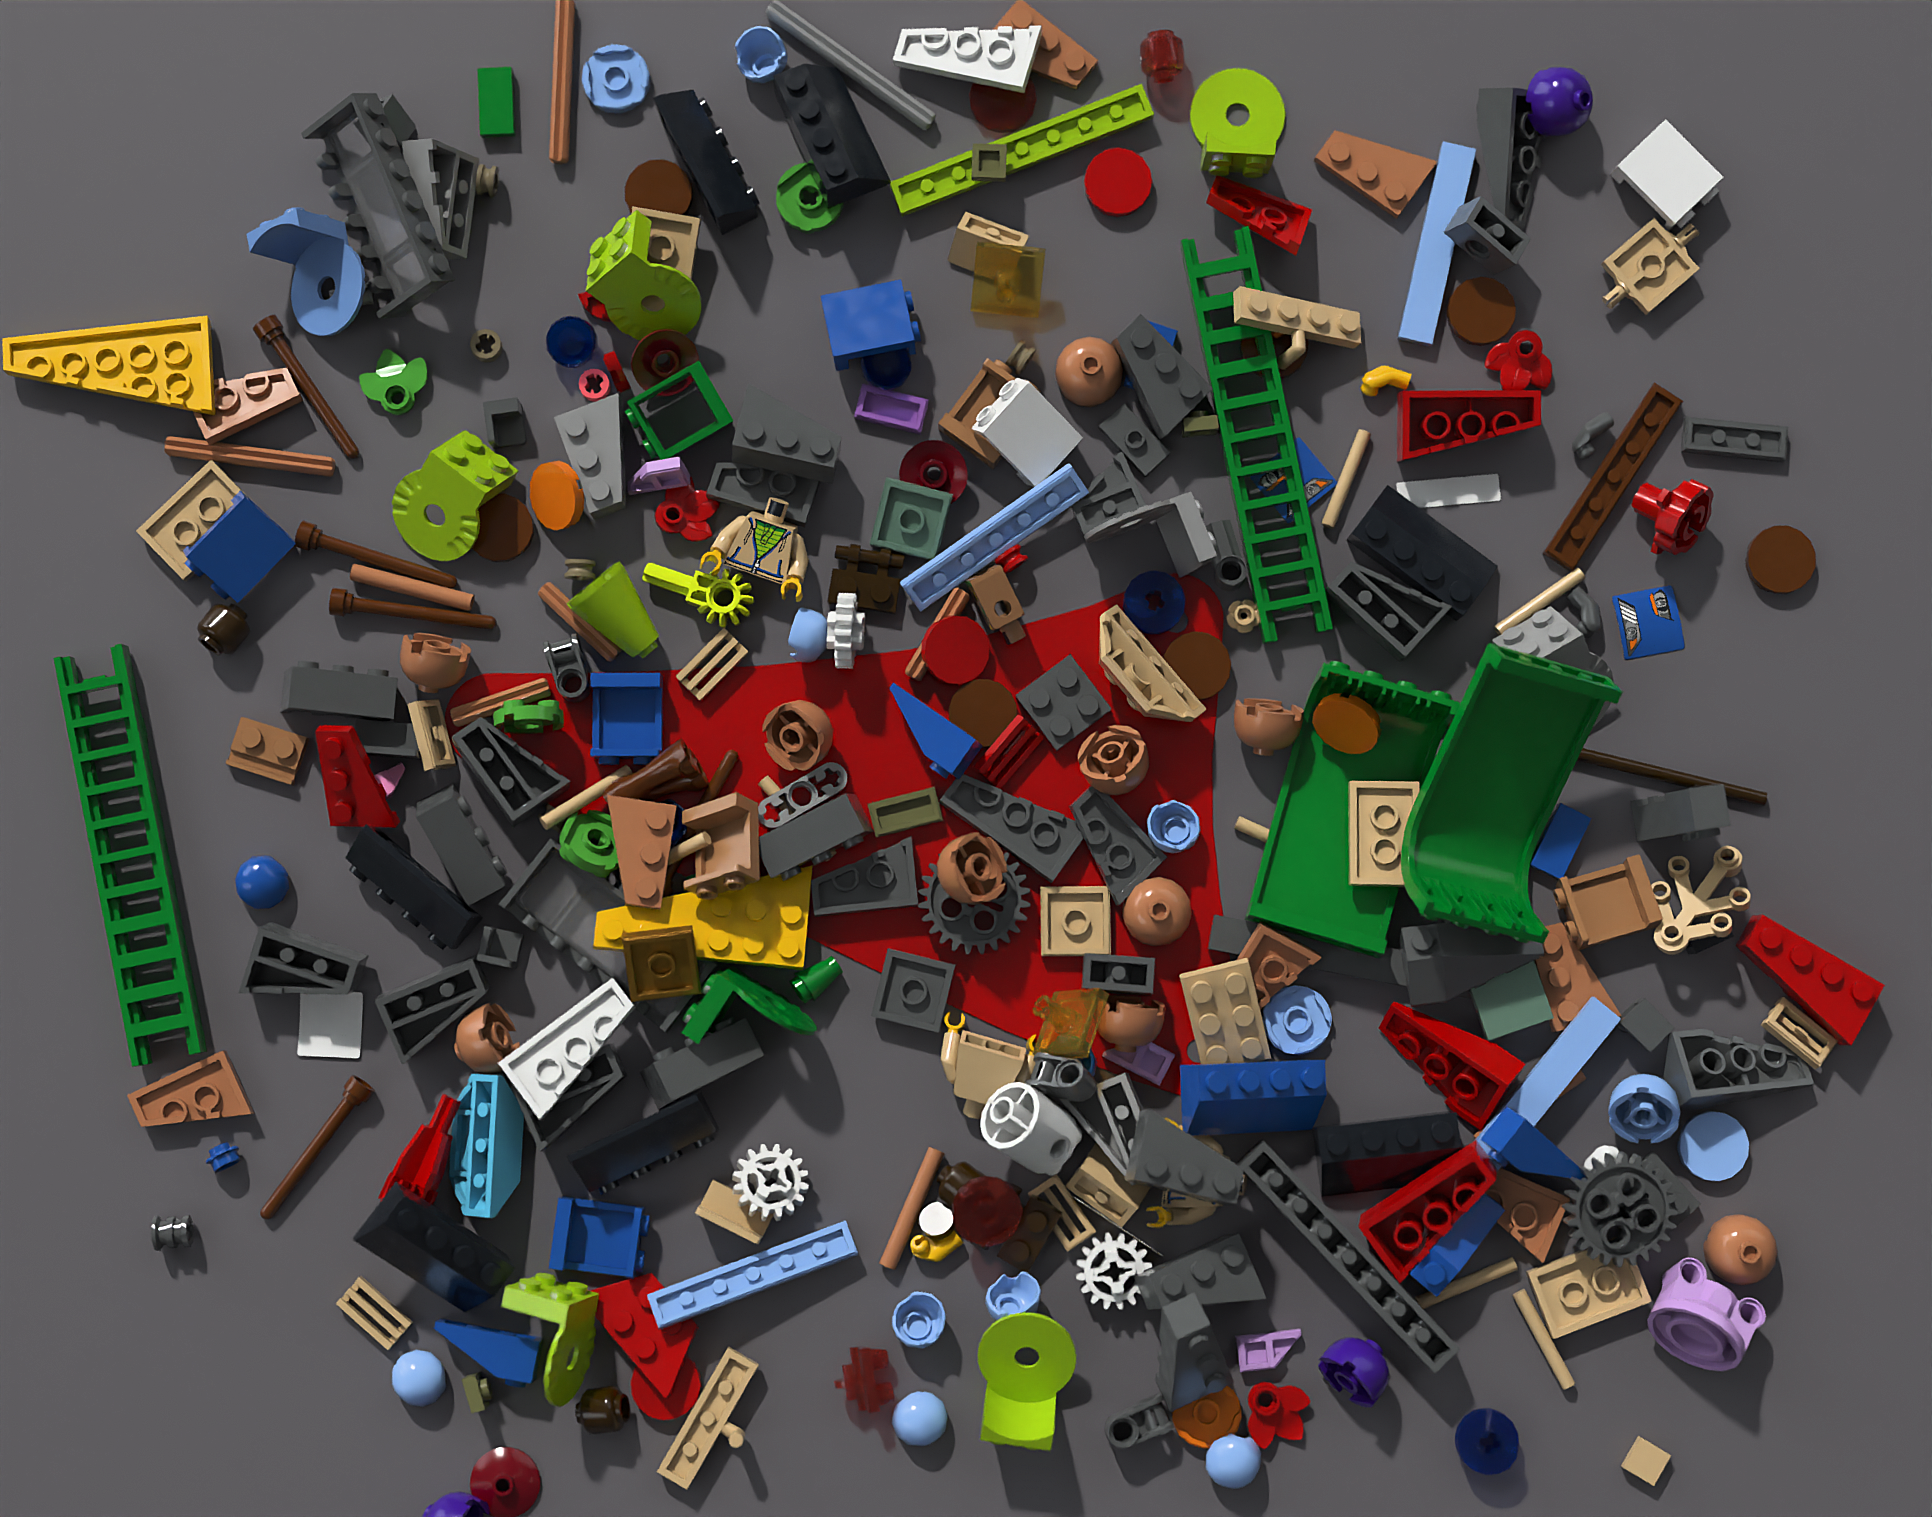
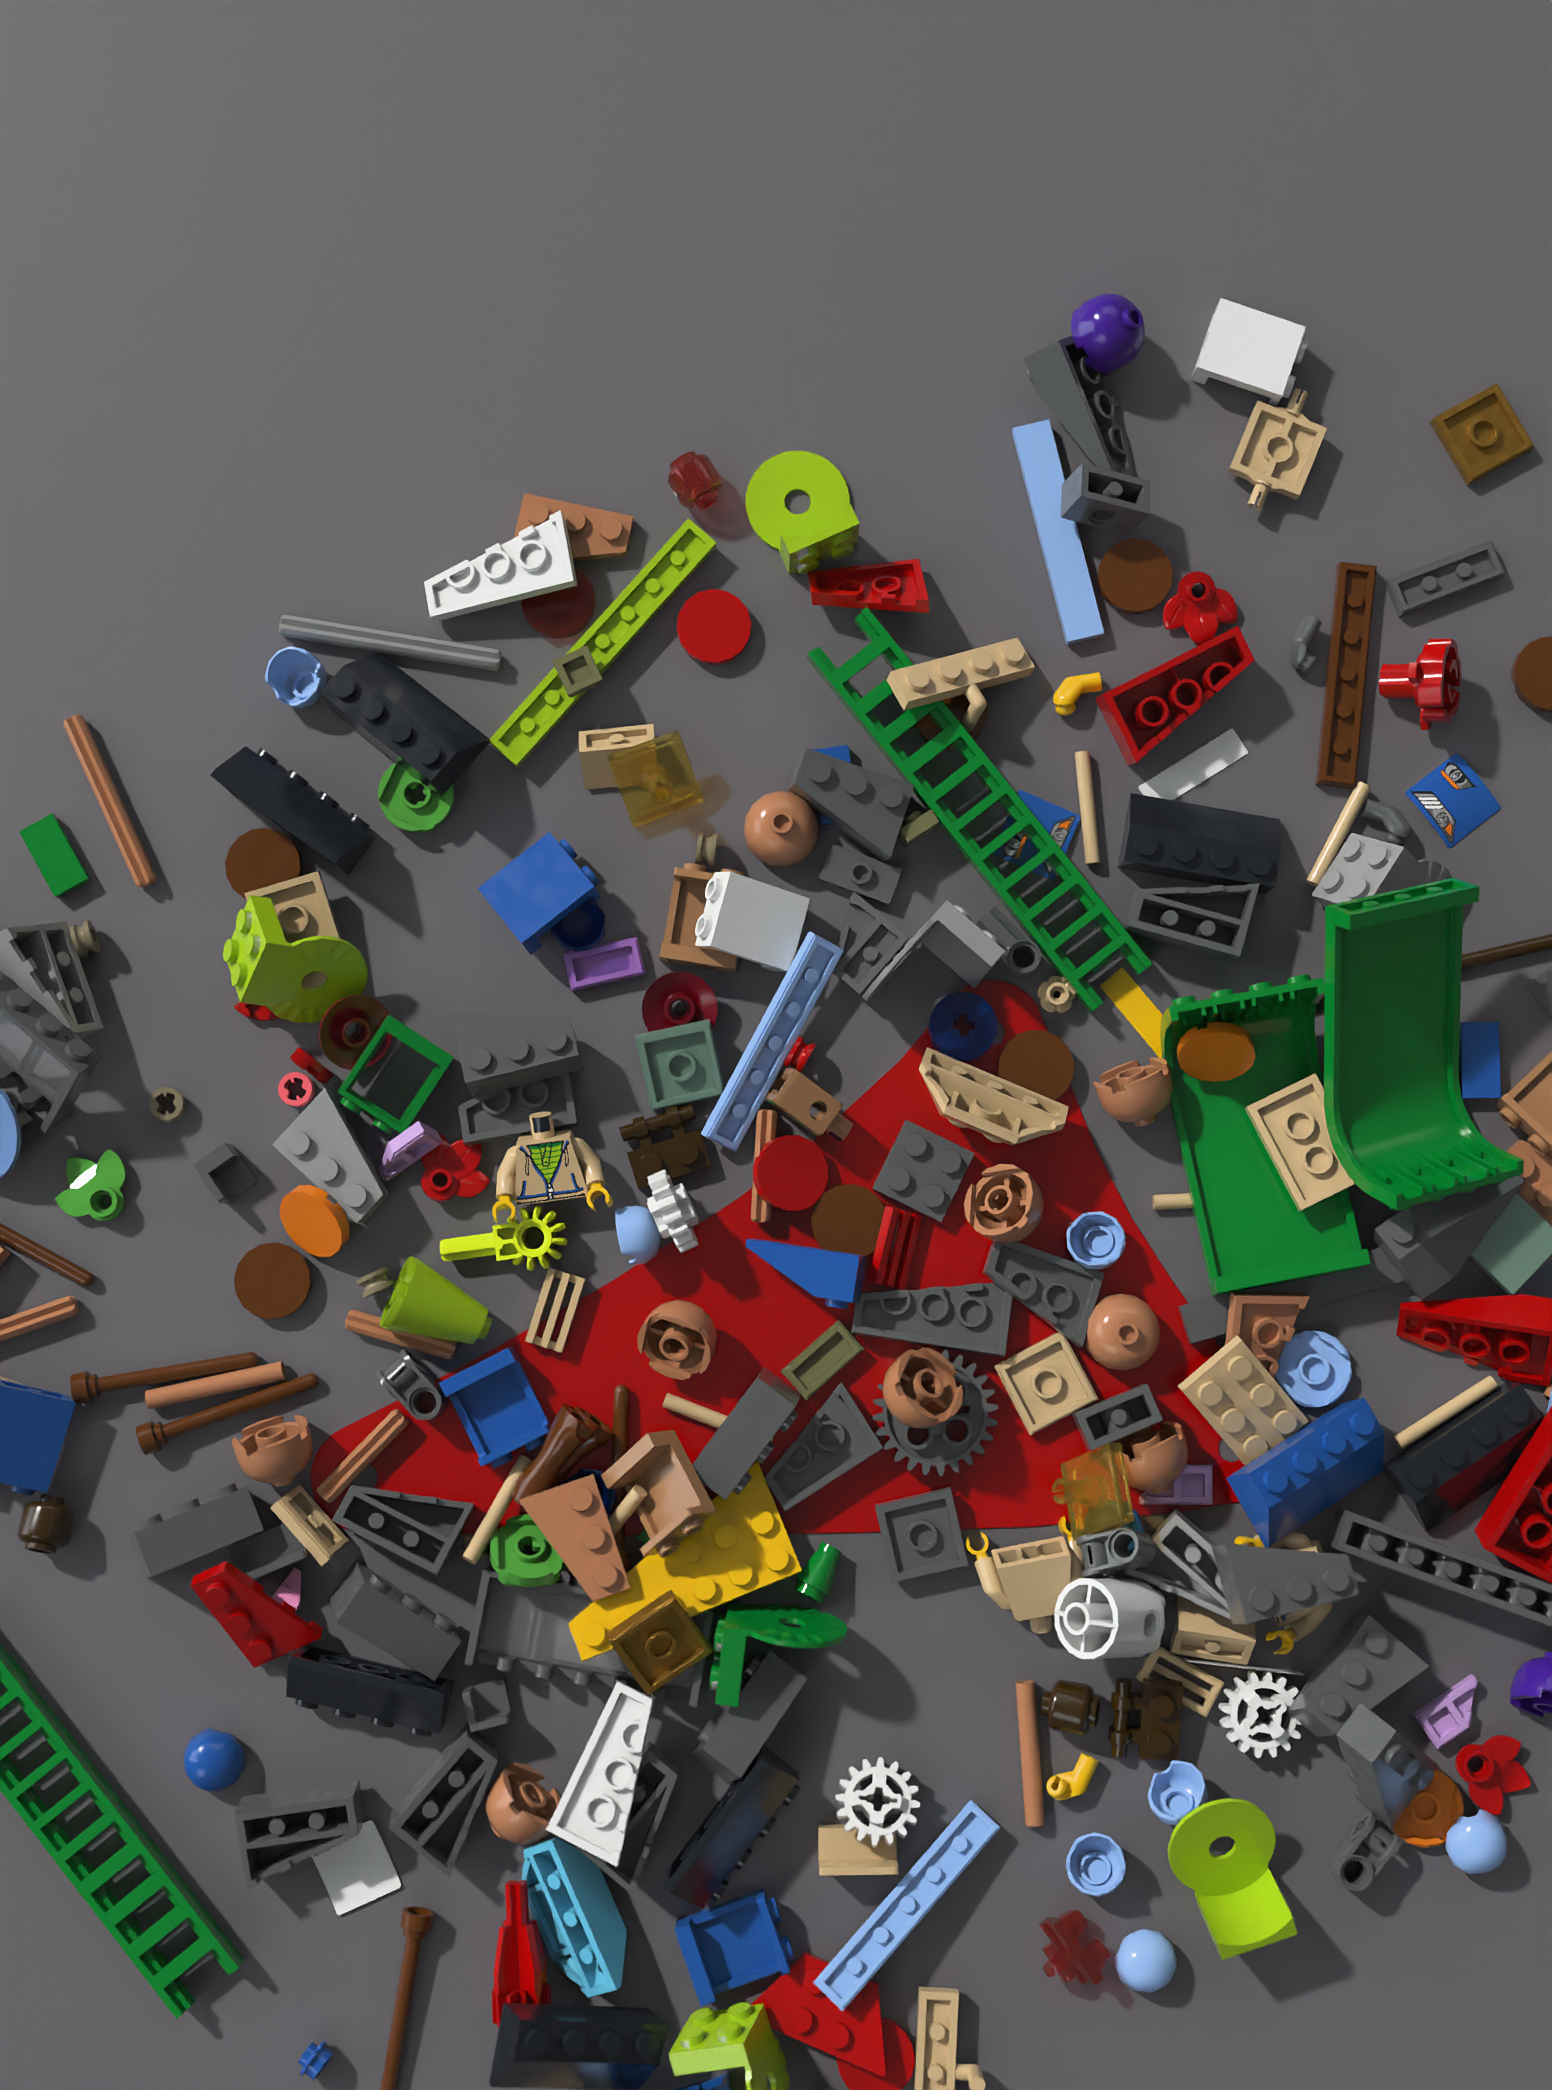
camera: 25 degrees left, 0 degrees up
(192, 1094) = (254, 2009): nougat wing -> none
(267, 751) = (152, 1624): medium nougat plate -> none
(458, 480) = (207, 1257): lime piece -> none
(528, 718) = (392, 1465): bright green plate -> none
(571, 341) = (251, 1058): clear blue hair -> none
(616, 79) = (163, 772): light blue tile -> none
(818, 775) = (718, 1368): light grey beam -> none
(937, 1221) = (1062, 1753): tile -> none
(987, 1211) = (1109, 1722): clear red tile -> none
(1302, 657) = (1135, 1007): none -> yellow sticker
(1375, 170) = (960, 489): nougat wing -> none
(1386, 1109) = (1445, 1412): none -> tan bar
(1826, 337) = (1482, 434): none -> pearl gold tile

